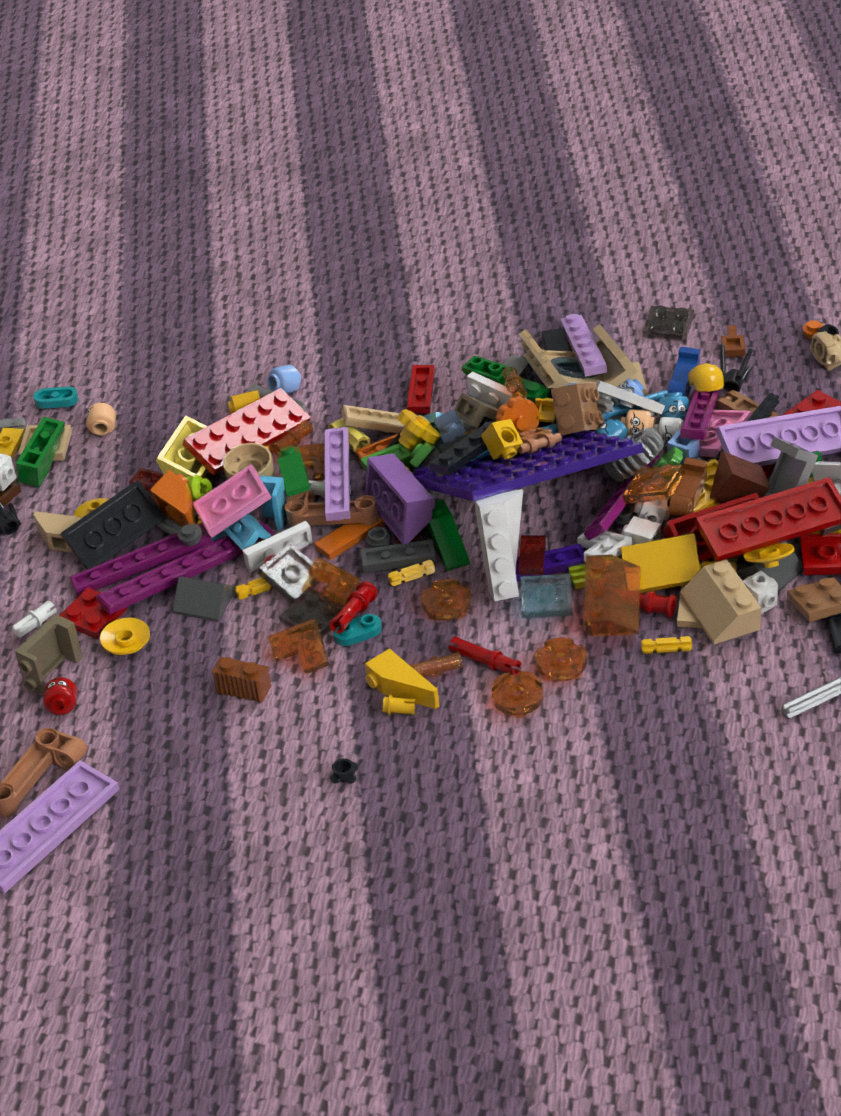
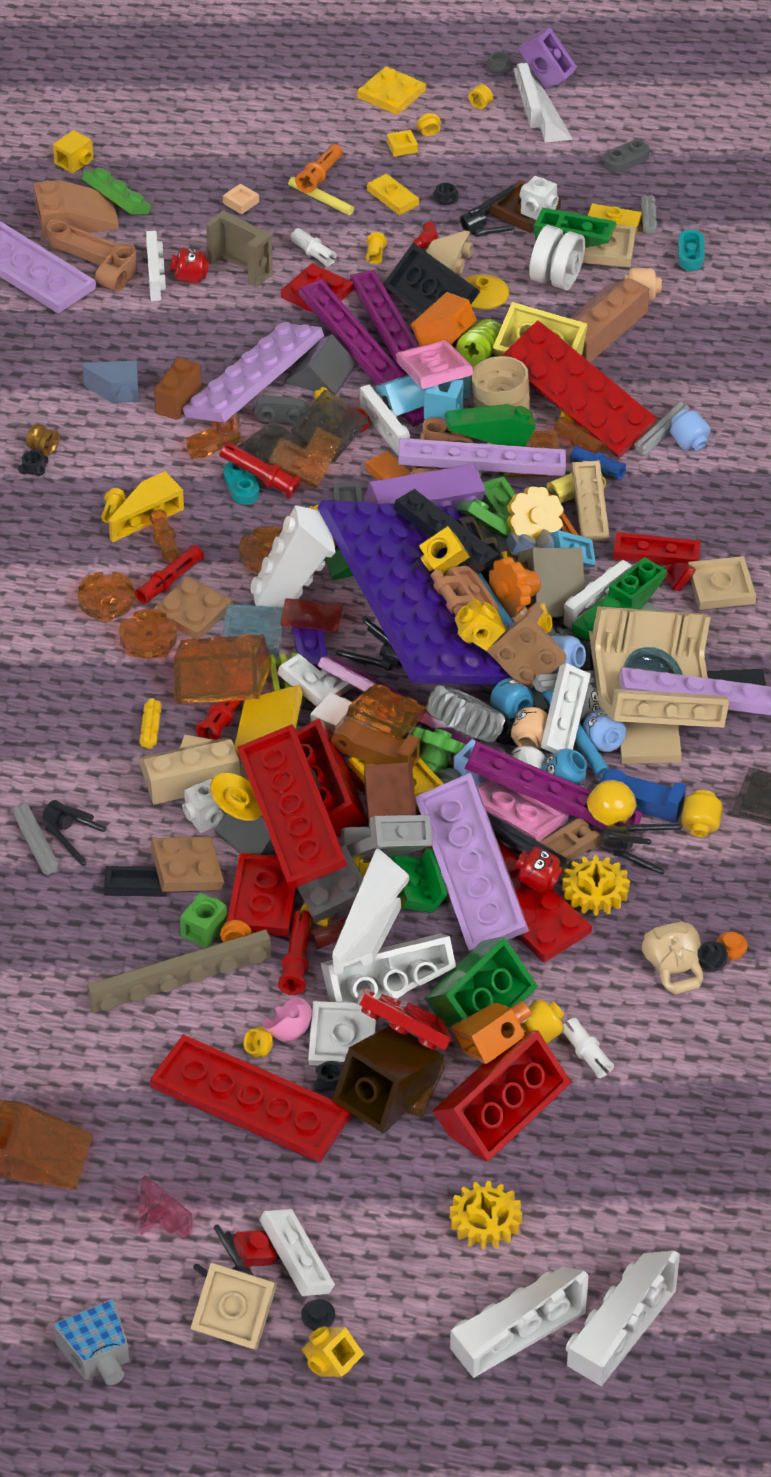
camera: 90 degrees right, 5 degrees up
(29, 549) = (428, 235): none -> red arm
(37, 579) = (376, 243): none -> yellow pin
(63, 720) = (155, 265): none -> white plate
(76, 456) = (557, 257): none -> white wheel
(125, 636) = (266, 308): yellow dish -> none
(136, 434) = (611, 314): none -> nougat slope
(190, 534) = (398, 341): dark grey plate -> none
(215, 630) = (253, 372): none -> lavender plate
(230, 725) = (113, 380): none -> sand blue slope
(241, 400) = (645, 391): yellow brick -> none
(267, 615) = (280, 409): none -> dark grey plate
(314, 765) = (42, 439): none -> pearl gold wheel
(321, 425) = (608, 466): none -> blue pin
(447, 376) = (678, 575): none -> red tile
(451, 354) = (722, 583): none -> tan plate
(514, 382) = (586, 592): clear orange pin -> none
(520, 638) = (194, 607): none -> medium nougat plate
(558, 513) = (387, 652): none -> black plant
(563, 427) = (479, 624): none -> yellow brick
(699, 341) = (701, 813): none -> yellow head
(733, 343) = (706, 853): dark orange plate -> none
(785, 385) = (581, 888): none -> yellow gear
(786, 401) = (538, 869): none -> red head
(790, 679) = (62, 817): none -> black plant

